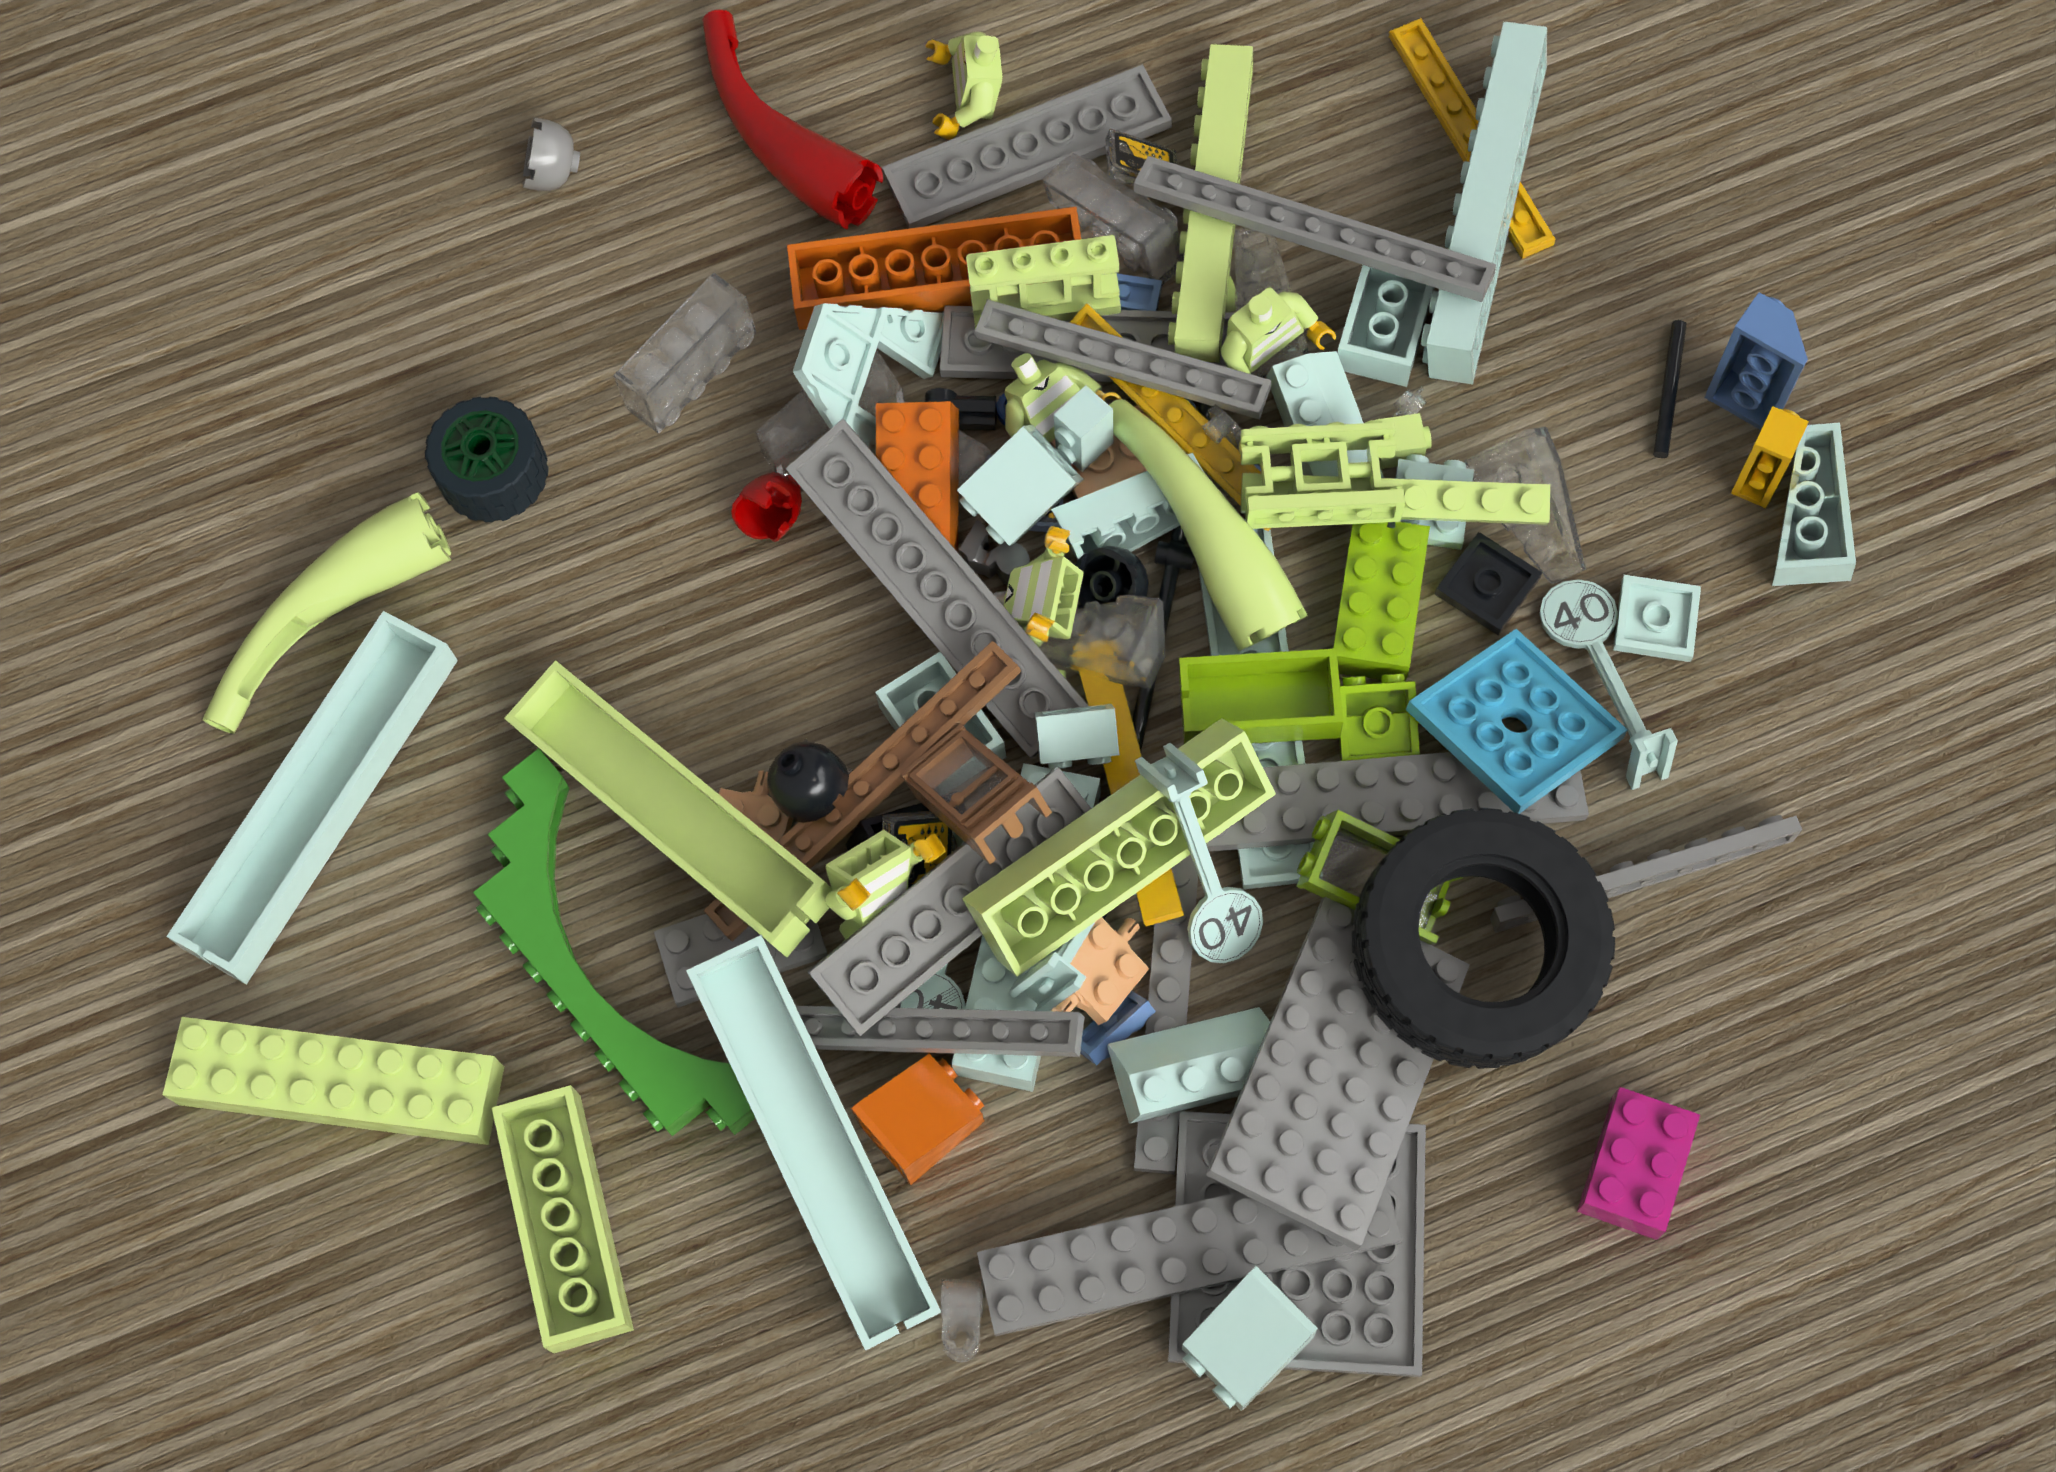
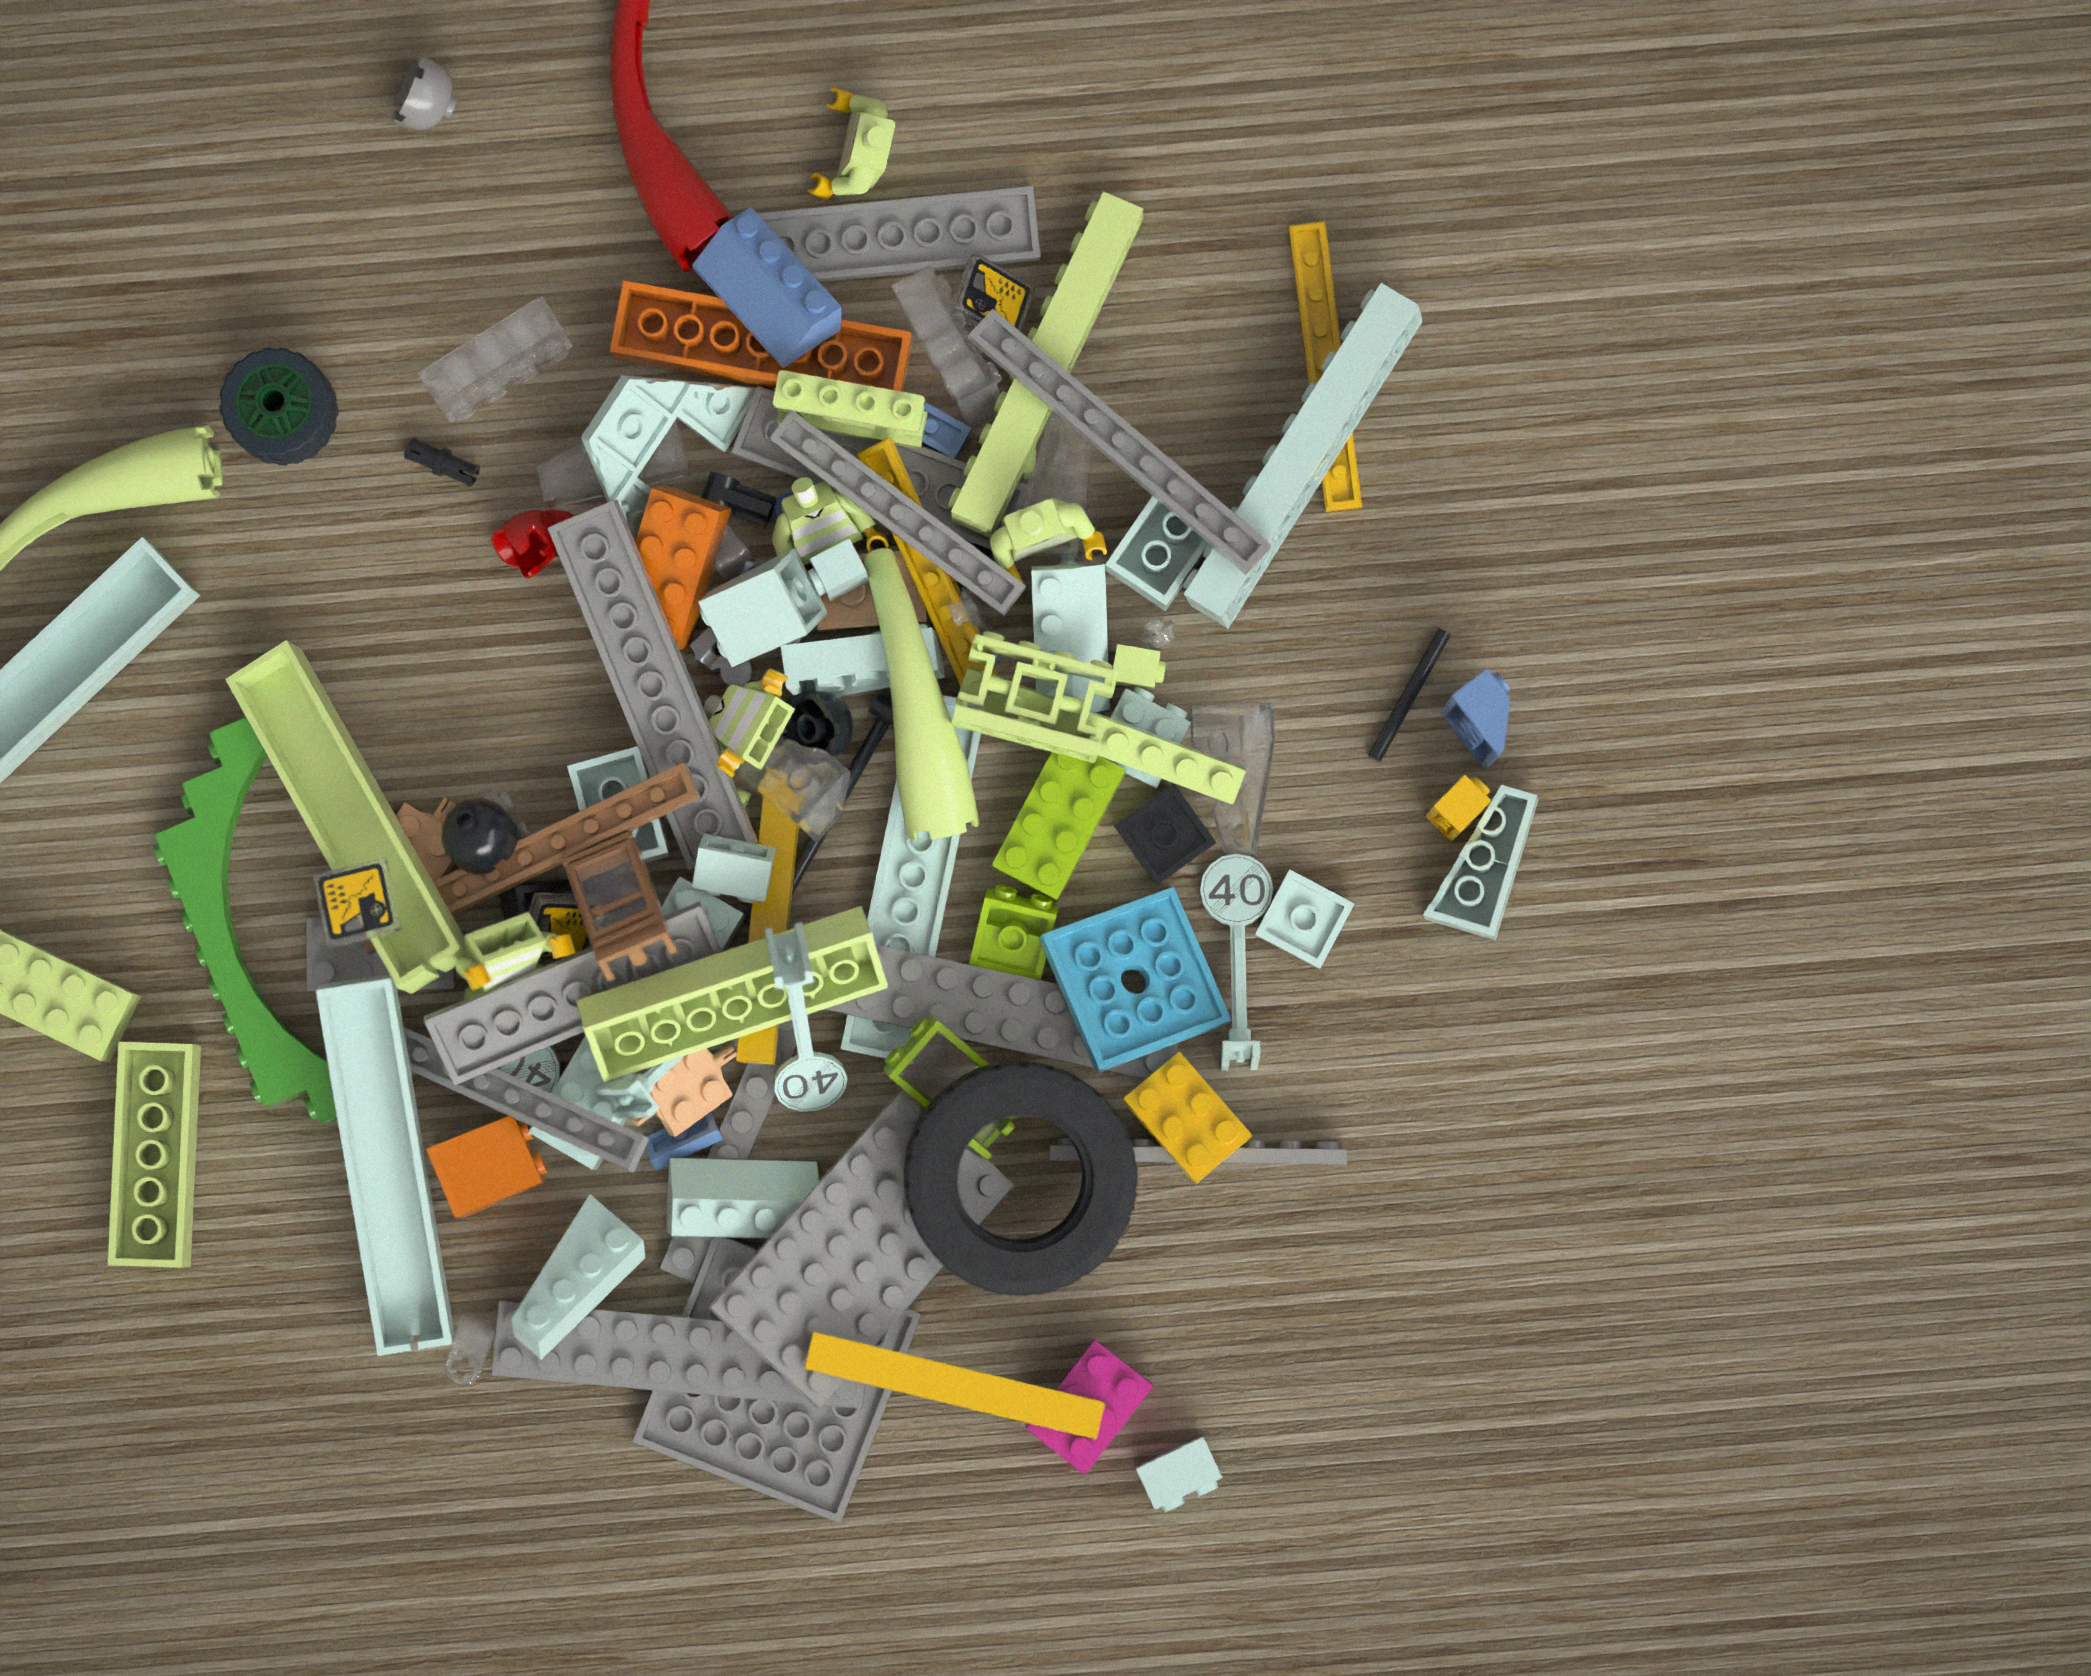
camera: 15 degrees right, 15 degrees up
(661, 466) = (442, 462): none -> black pin
(703, 875) = (357, 902): none -> tile
(929, 203) = (768, 288): none -> medium blue slope
(1054, 1193) = (577, 1277): none -> light aqua wedge
(1248, 1340) = (699, 1452): light aqua slope -> none
(1263, 694) = (910, 886): lime piece -> none
(1495, 1174) = (954, 1385): none -> yellow tile
(1625, 835) = (1187, 1118): none -> yellow plate
(1759, 1204) = (1179, 1473): none -> light aqua brick

